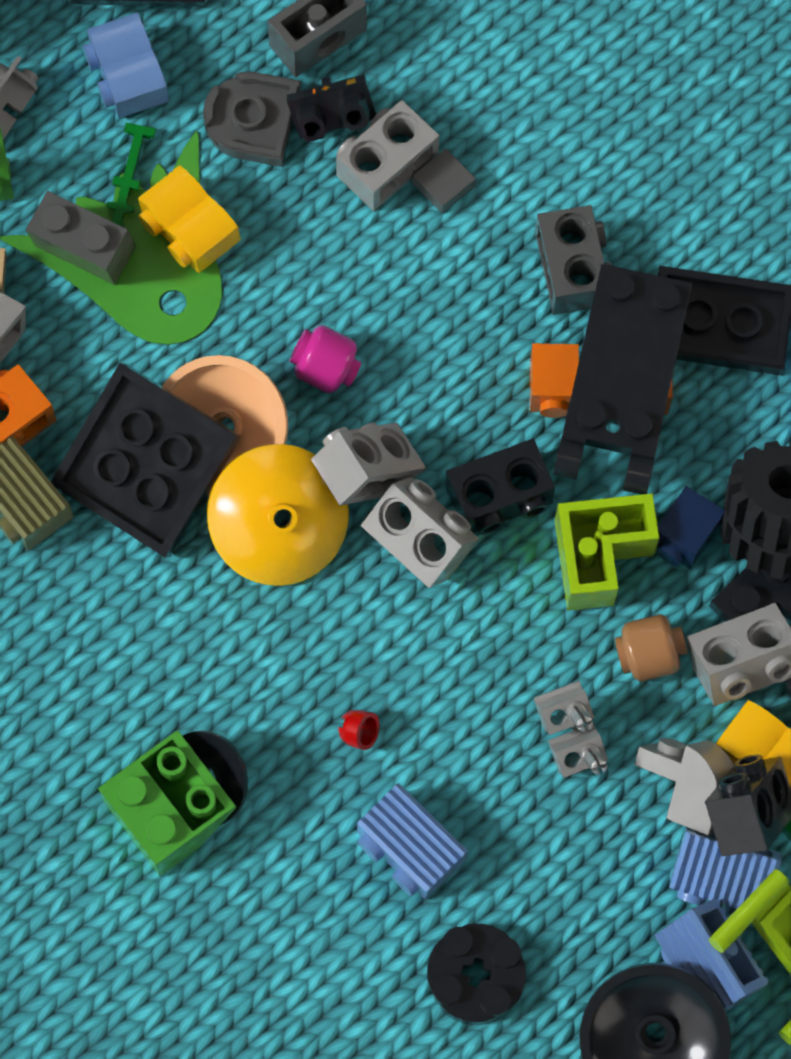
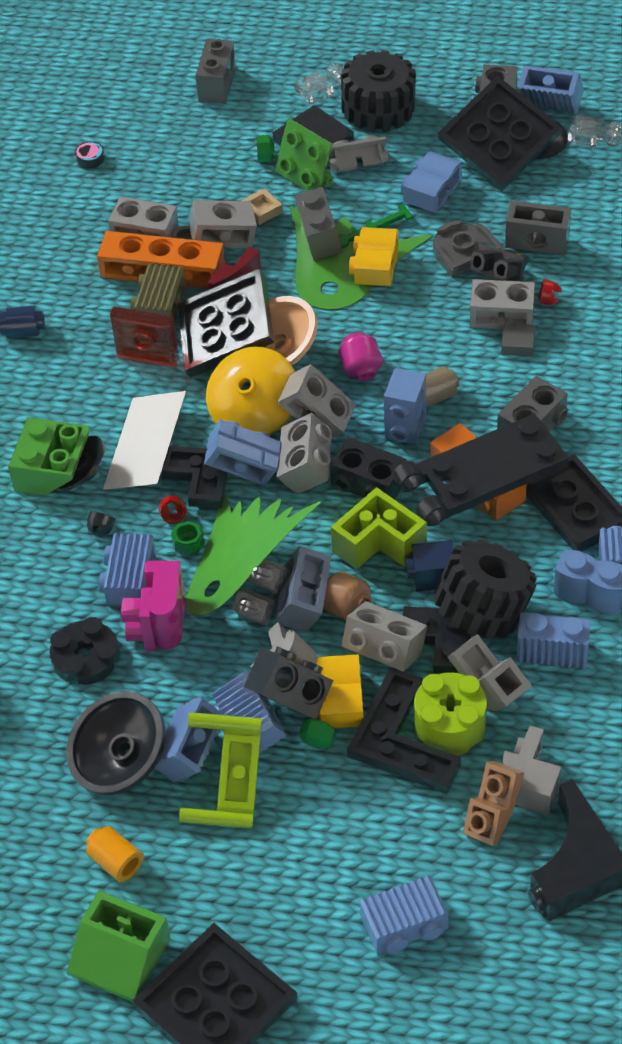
camera: 55 degrees right, 20 degrees down
(70, 395) = (247, 263): none -> dark red slope
(87, 563) = (144, 336): none -> clear red tile
(228, 679) = (144, 440): none -> white sticker
(307, 819) = (101, 521): none -> black hinge
(337, 648) = (207, 482): none -> black plate
(362, 594) = (242, 452): none -> medium blue brick
(412, 92) = (547, 292): none -> red hinge
(416, 744) = (187, 538): none -> green tile
(440, 323) = (440, 385): none -> dark tan brick
(458, 378) = (405, 406): none -> medium blue brick
(503, 710) = (236, 548): none -> bright green piece
(518, 849) = (160, 611): none -> dark pink hips
(616, 685) = (303, 589): none -> sand blue brick

